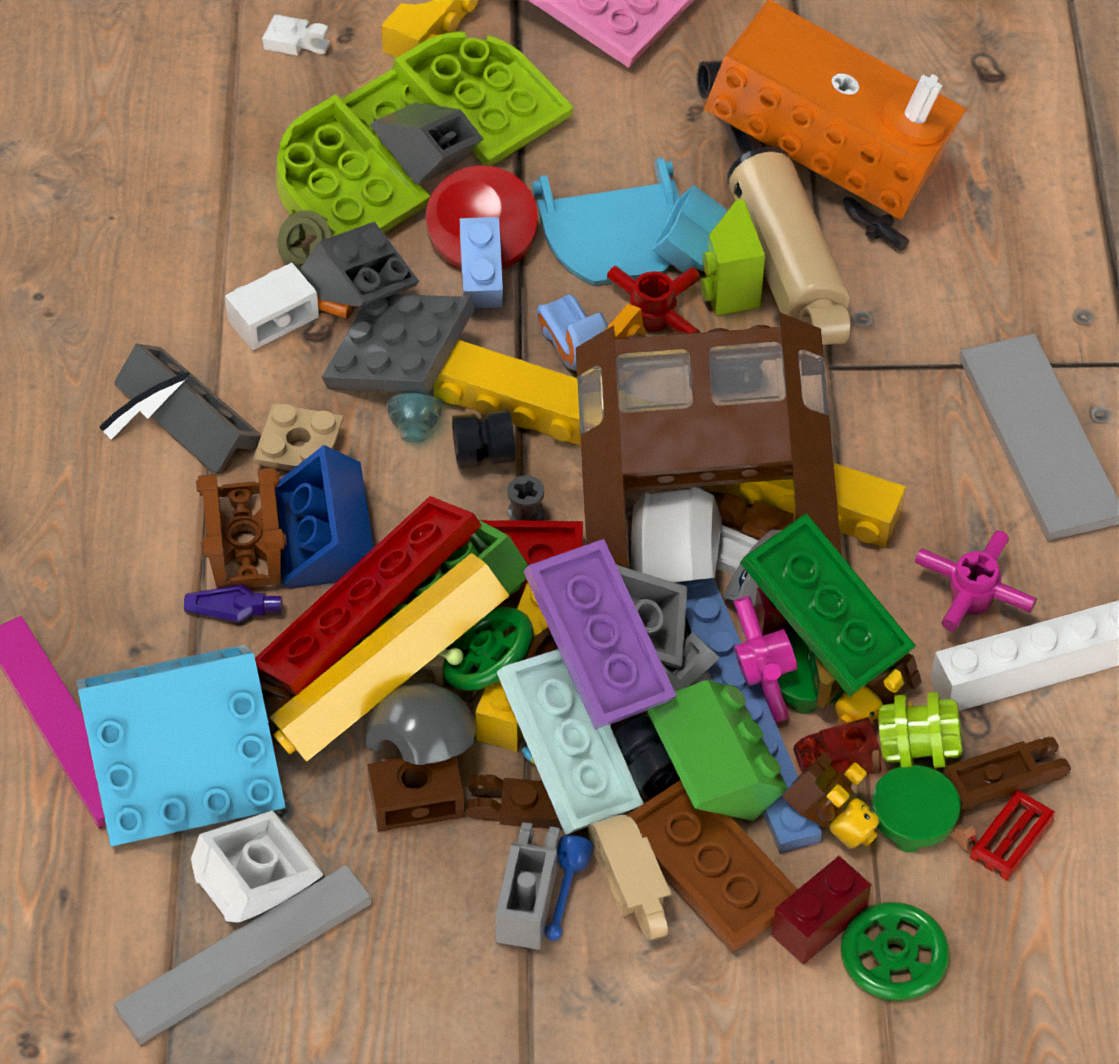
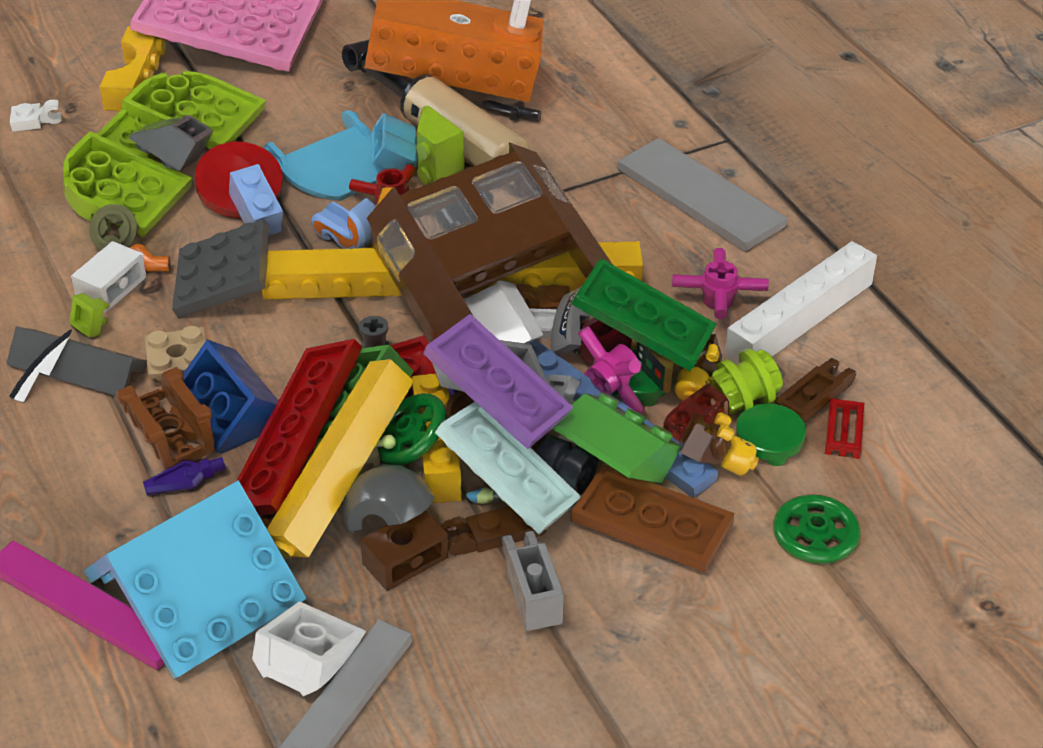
camera: 25 degrees left, 10 degrees down
(226, 351) = (88, 314): none -> lime tile
(357, 267) = (164, 228): dark grey slope -> none
(414, 414) = (257, 309): clear light blue brick -> none
(483, 438) = (324, 306): black wheel -> none
(573, 856) = (556, 550): blue hinge -> none
(631, 872) = (602, 544): tan piece -> none
(820, 909) = (752, 518): dark red brick -> none
(964, 836) = (815, 440): nougat piece -> none

